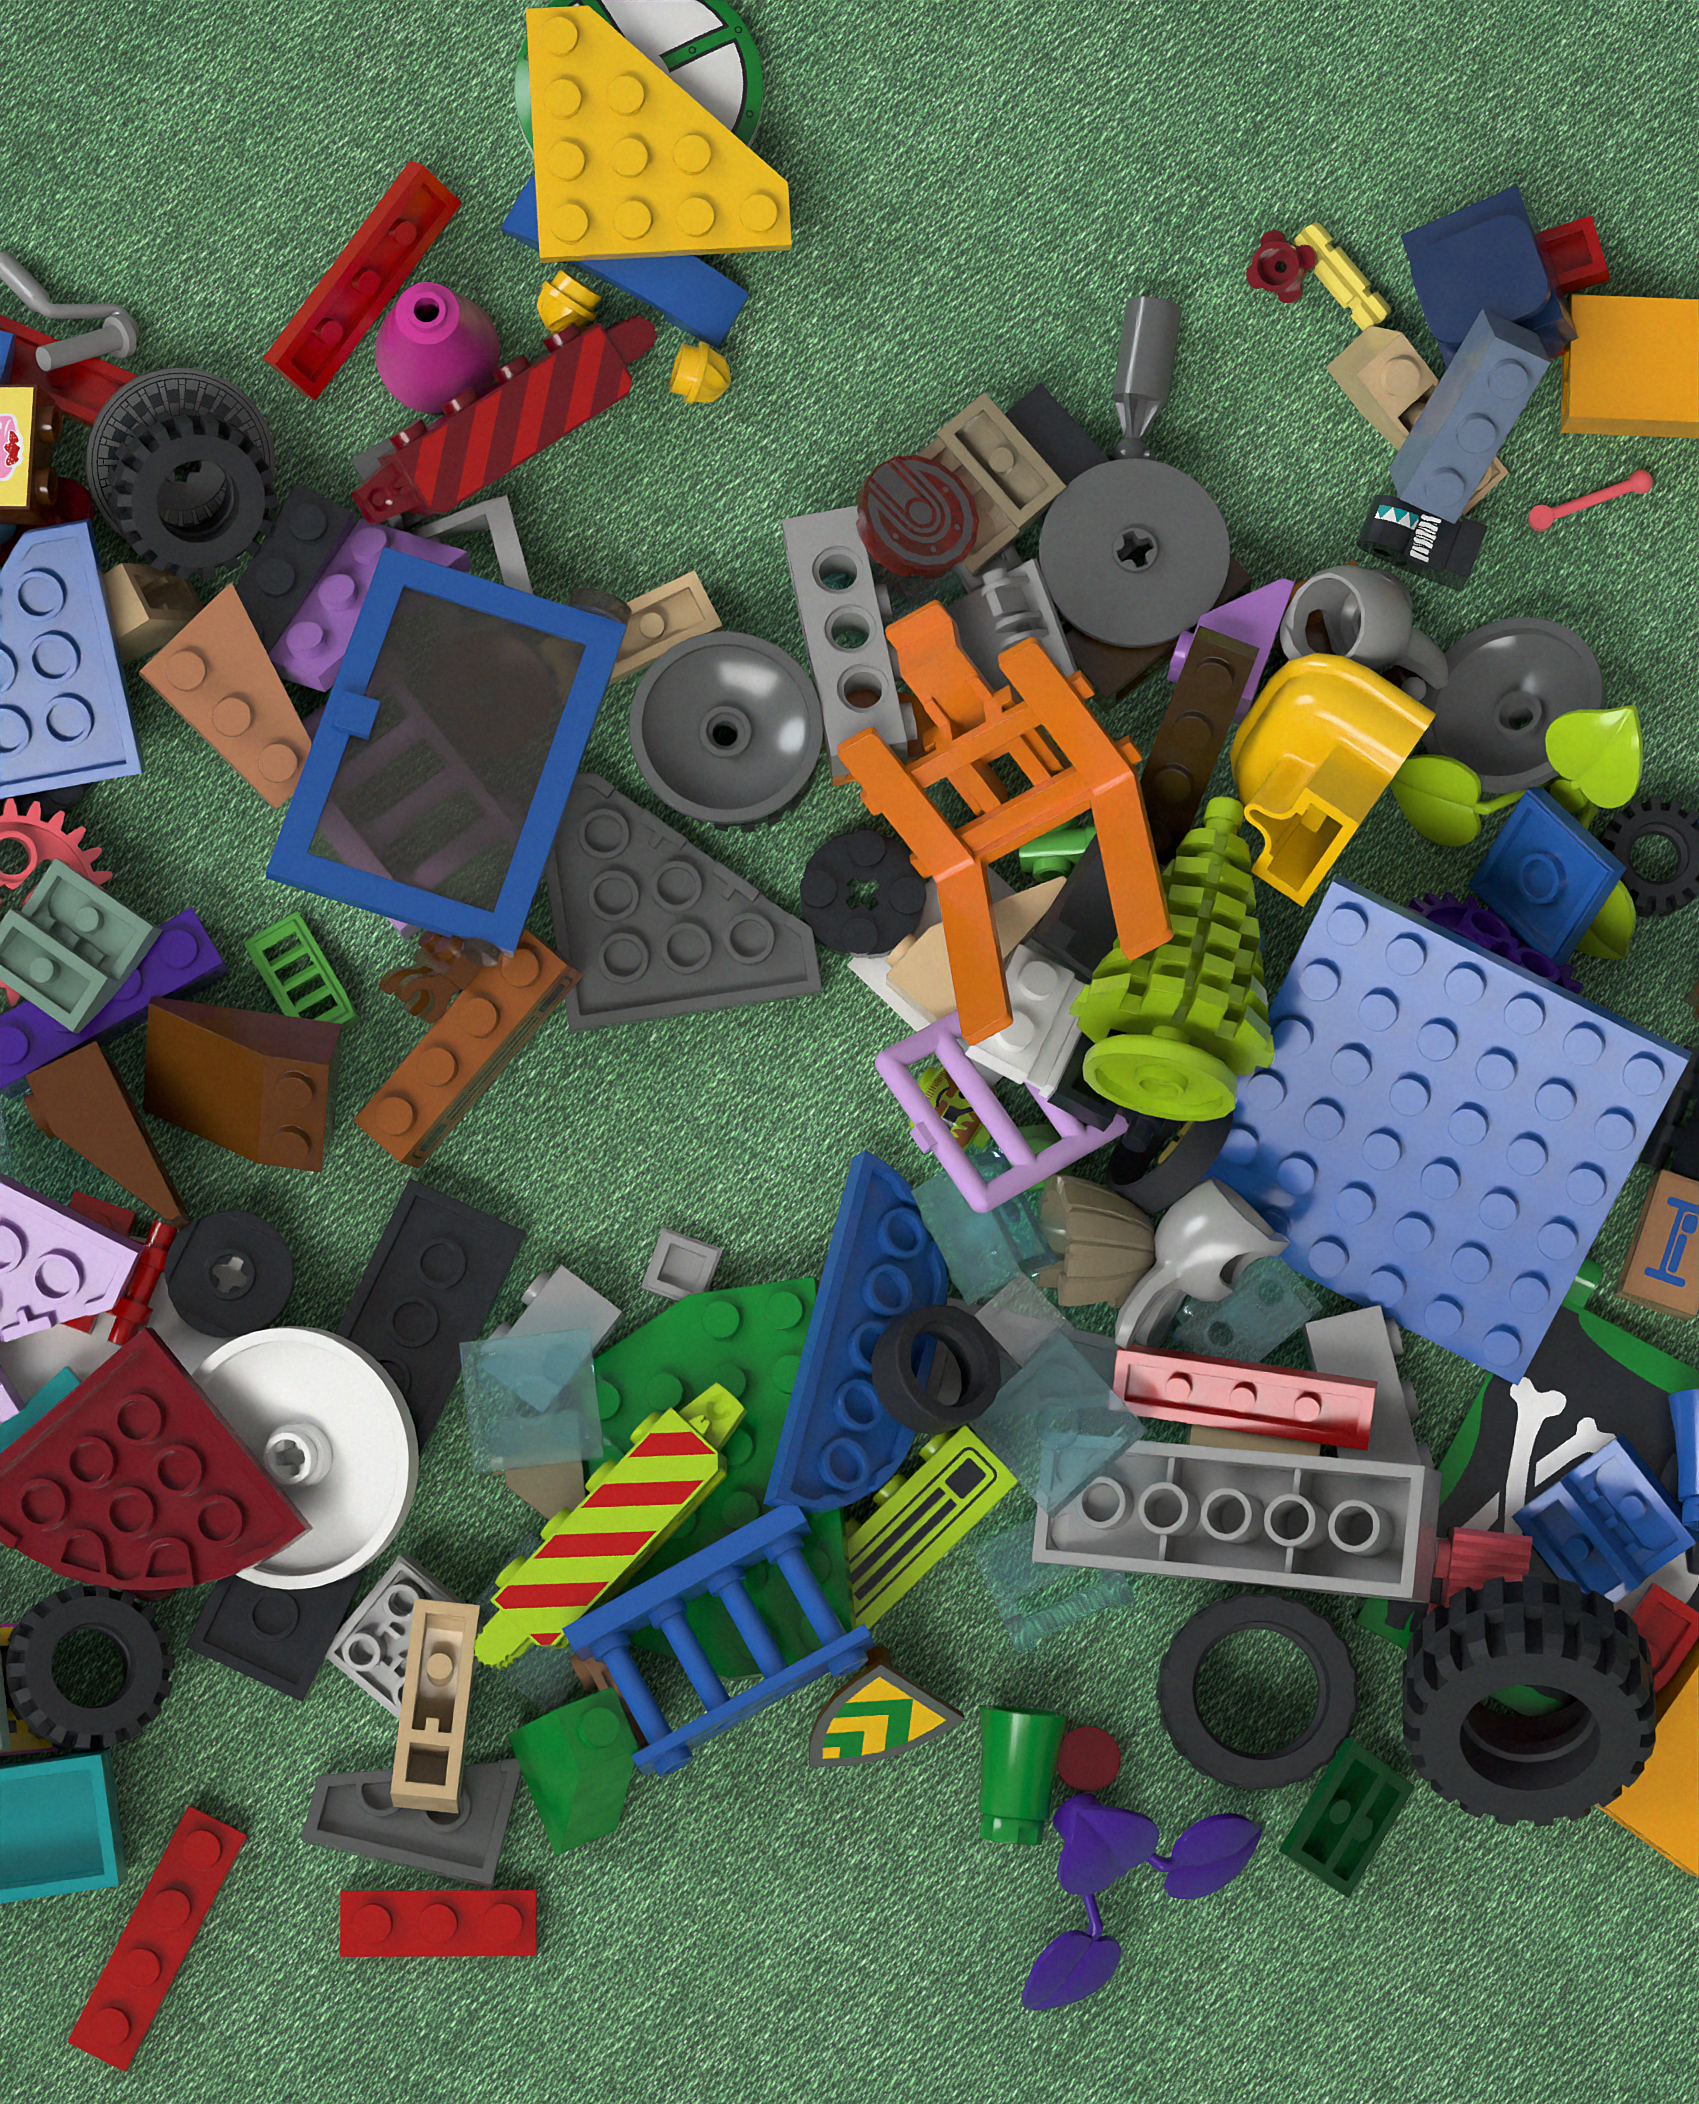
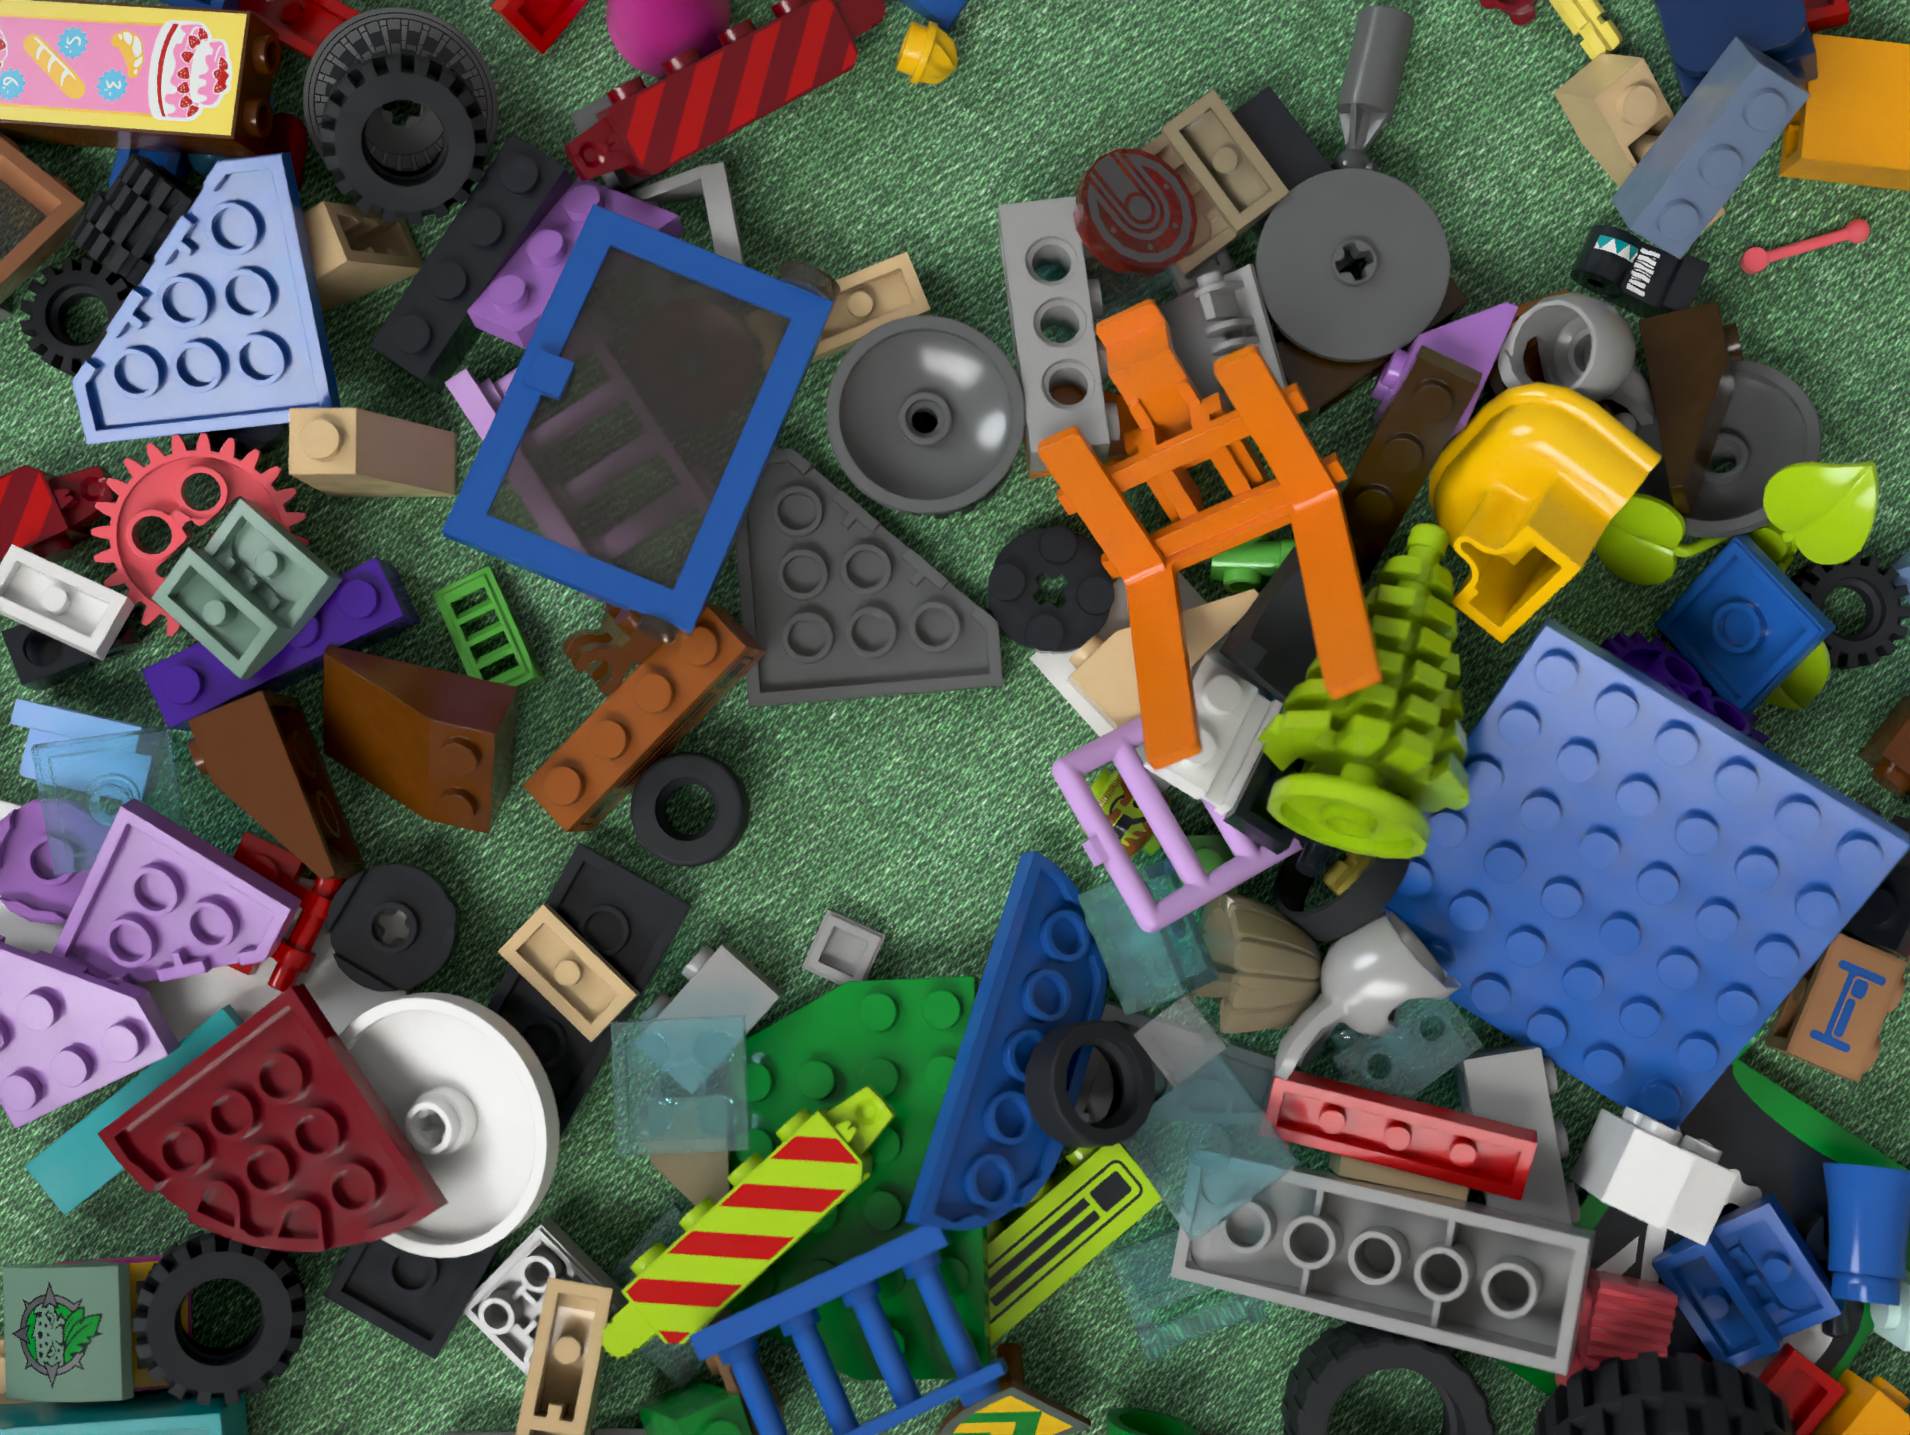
camera: 10 degrees right, 5 degrees up
(180, 808) = (370, 454): none -> tan slope
(233, 697) = (428, 344): nougat wing -> none
(411, 1302) = (568, 972): none -> tan plate
(510, 1097) = (650, 803): none -> black tyre
(1477, 653) = (1691, 390): none -> dark brown slope
(1501, 1422) = (1647, 1174): none -> white brick

